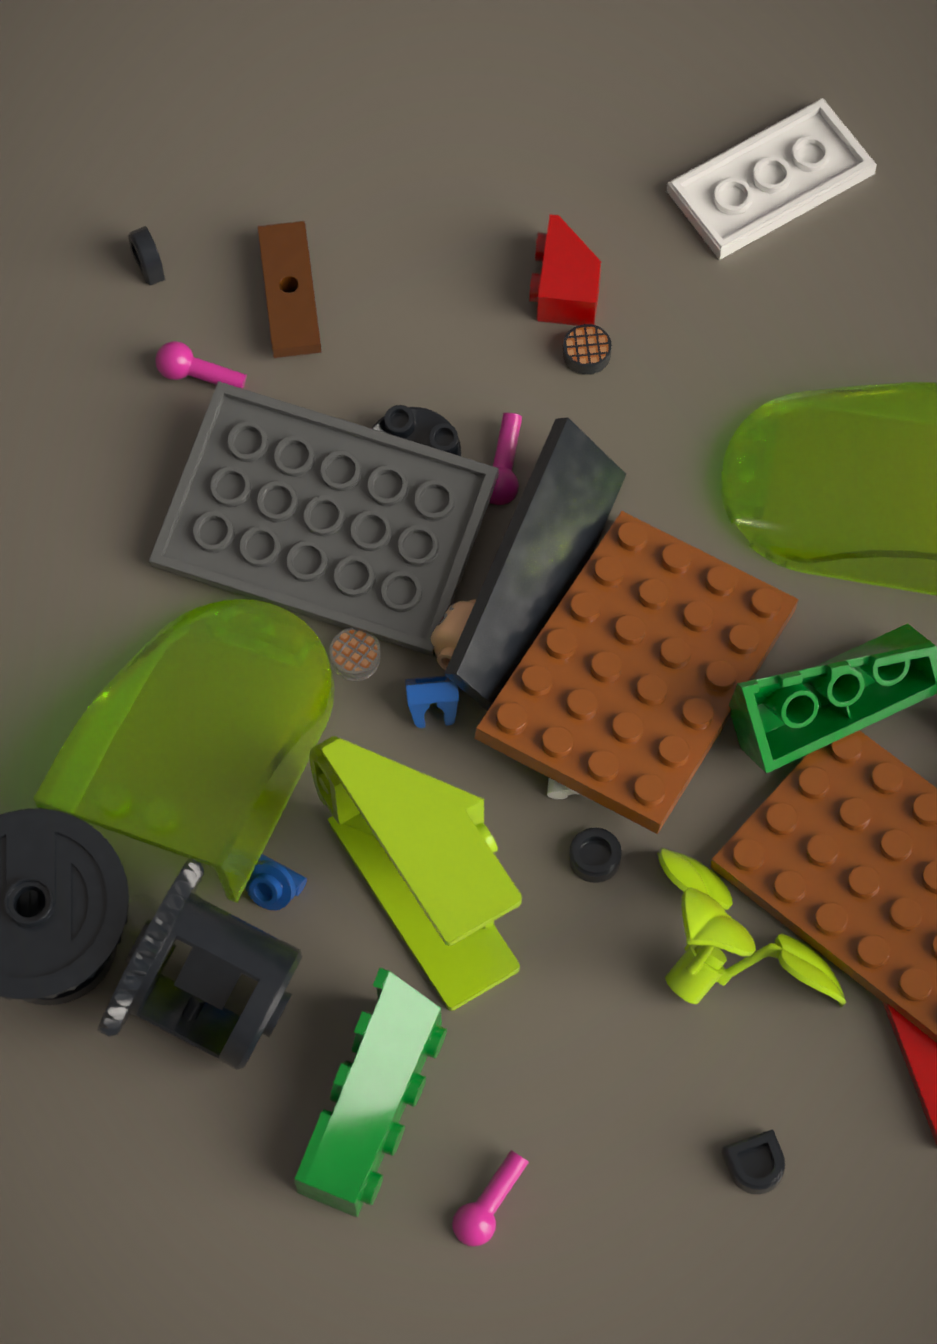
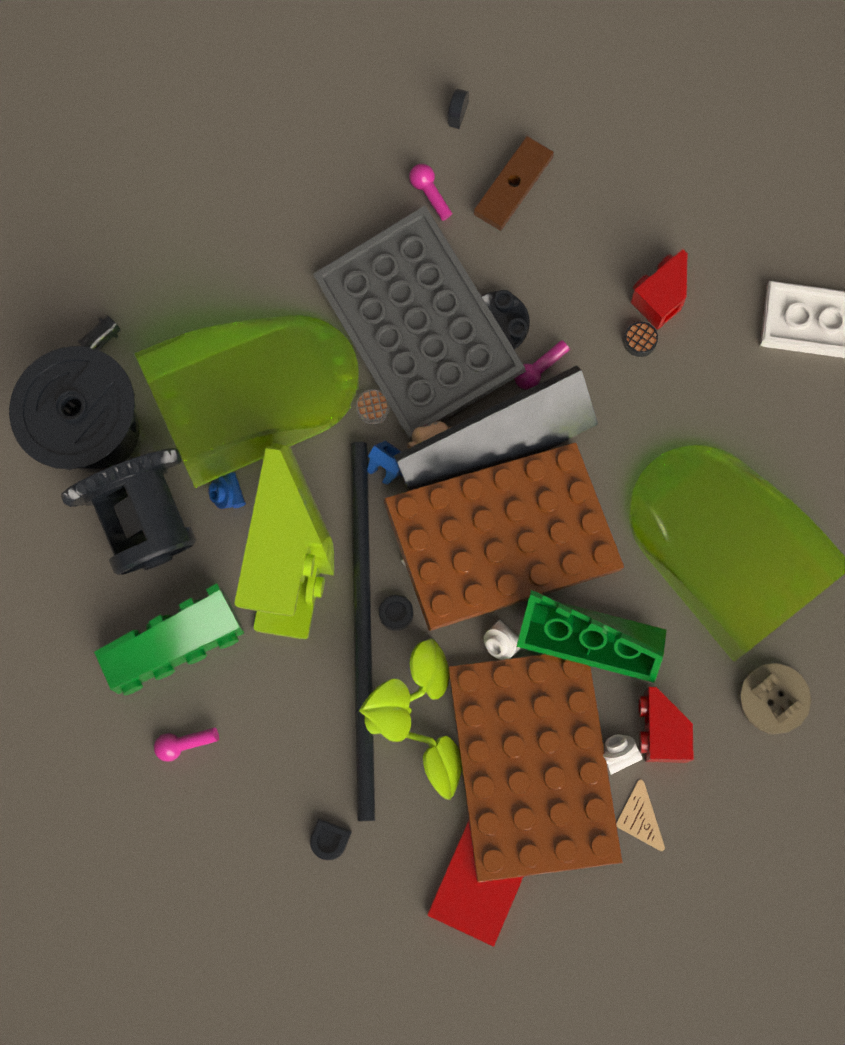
camera: 45 degrees right, 10 degrees up
(585, 913) = (362, 629): none -> black piece
(742, 787) = (501, 641): none -> white plate

